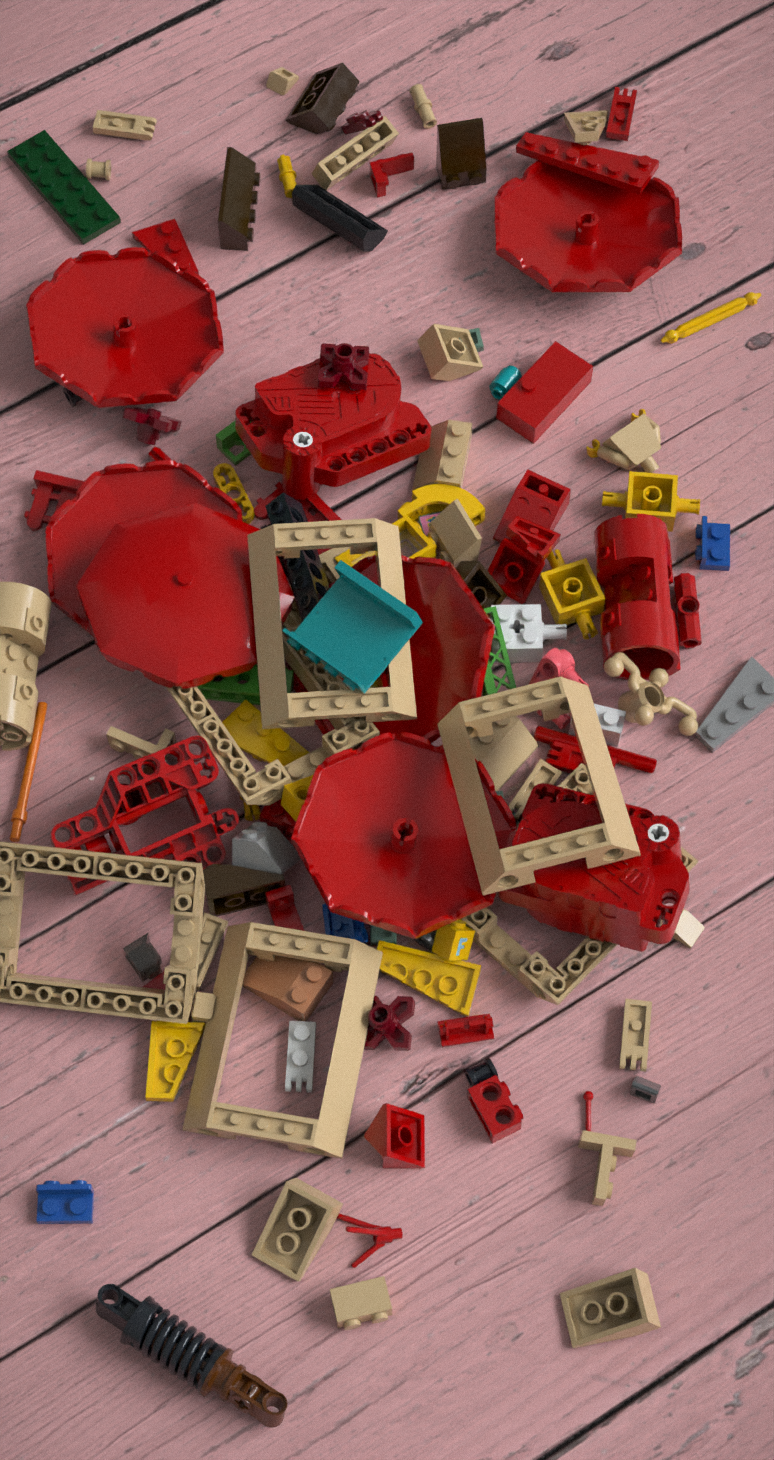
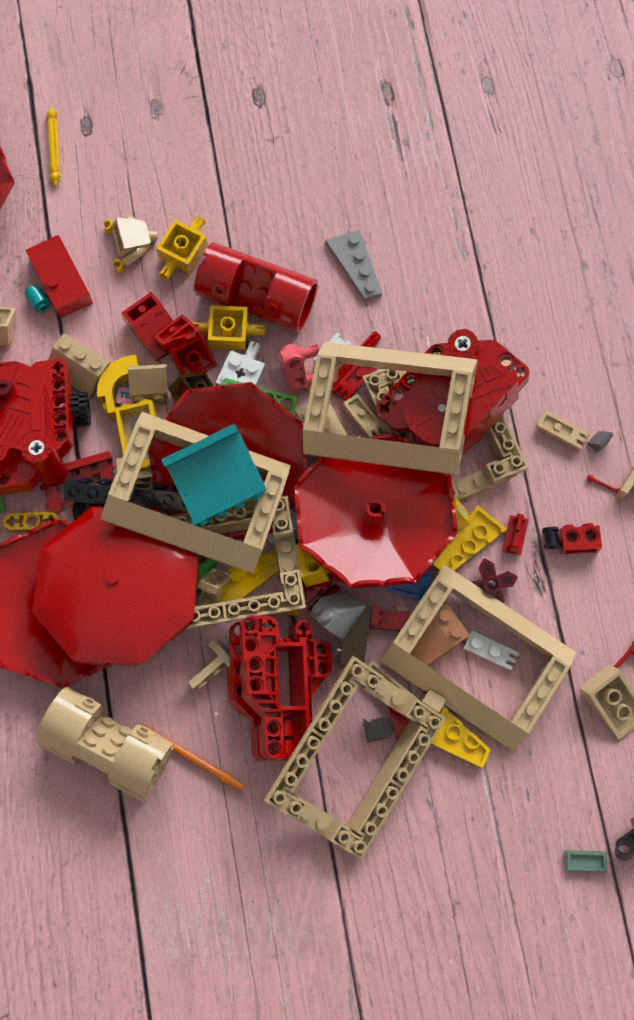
camera: 70 degrees left, 10 degrees up
(65, 1203) = (537, 854): blue bracket -> none
(79, 1268) = (586, 861): none -> sand green tile
(236, 702) = (213, 586): none -> tan bracket
(389, 481) = (81, 409): none -> black tyre
(398, 1137) = (577, 610): red slope -> none
(647, 697) = (333, 314): tan wheel -> none
(687, 622) = (275, 256): red piece -> none
(714, 545) = (231, 225): blue bracket -> none

